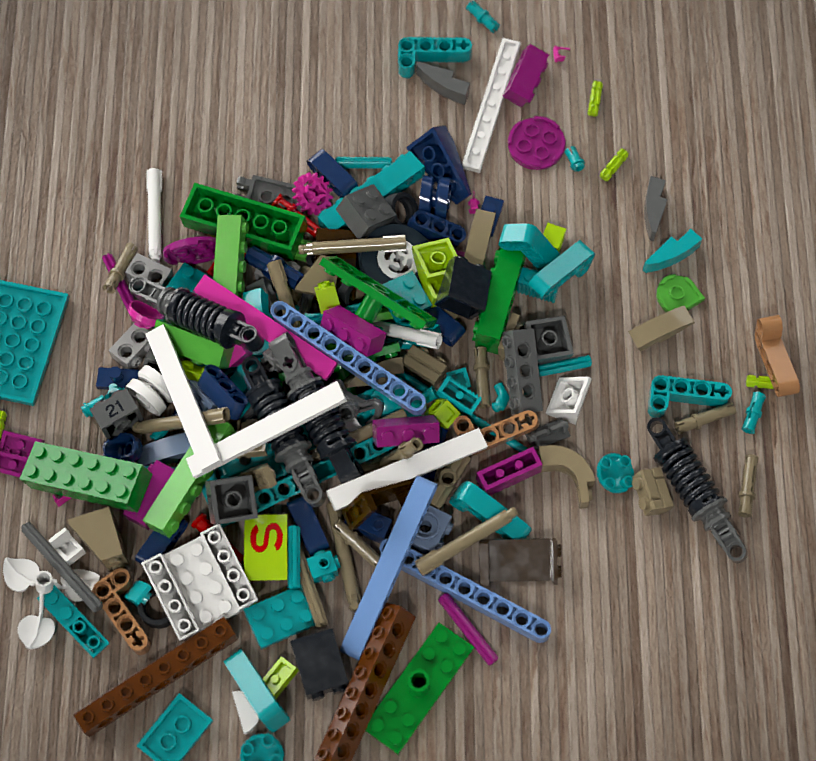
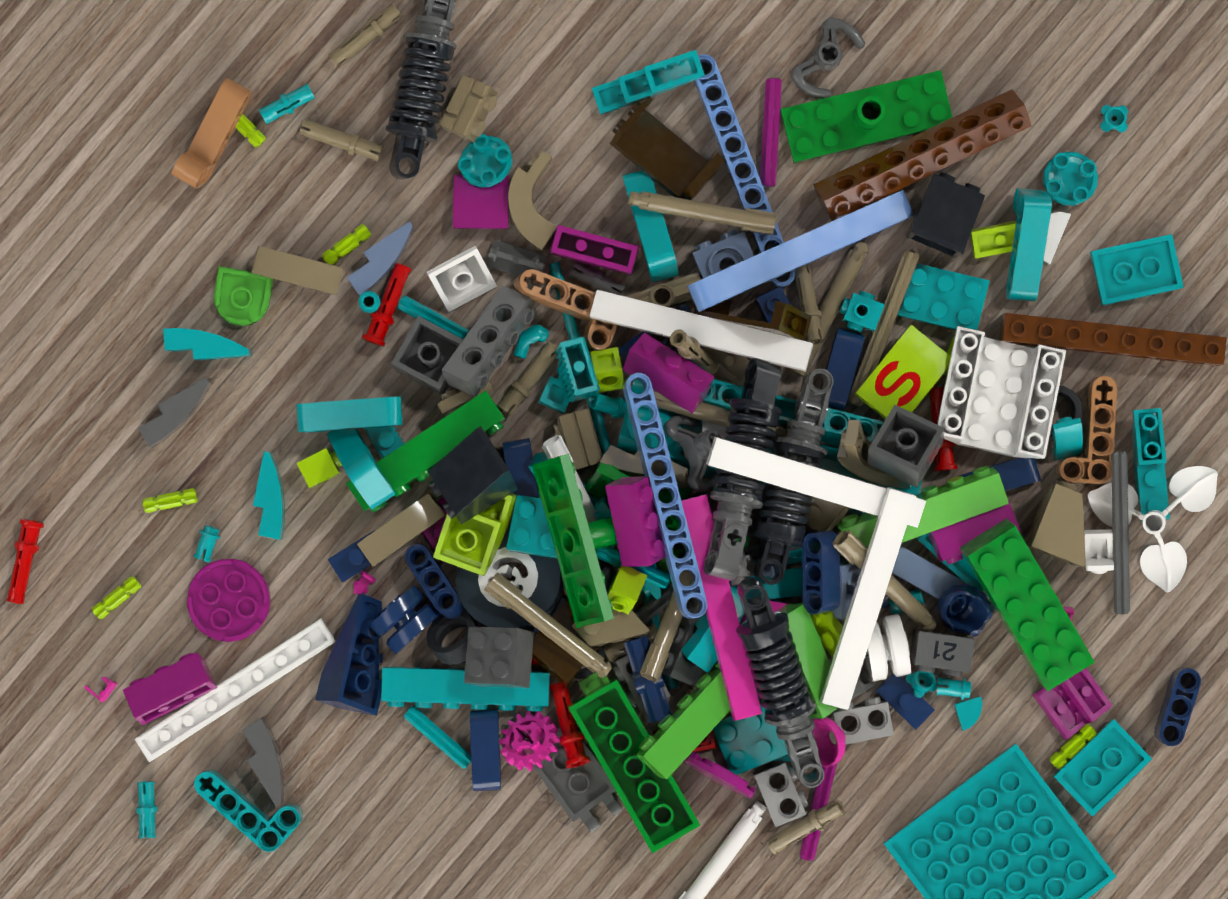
camera: 150 degrees left, 20 degrees up
(75, 401) = (968, 712): none -> teal tile
(293, 551) = (884, 344): teal axle -> none
(475, 702) = (826, 56): none -> dark grey piece
(490, 459) = (595, 280): none -> dark grey pin
(563, 205) = (271, 498): none -> teal slope
(565, 593) = (648, 82): none -> teal slope
(592, 343) = (382, 318): none -> red pin
(596, 443) = (480, 206): none -> magenta slope
(606, 342) = (367, 295): none -> teal pin
(622, 371) = (382, 259): none -> sand blue slope
(648, 365) = (346, 245): none -> lime axle
(663, 84) = (25, 547): none -> red pin
(689, 396) = (335, 176): teal beam -> none

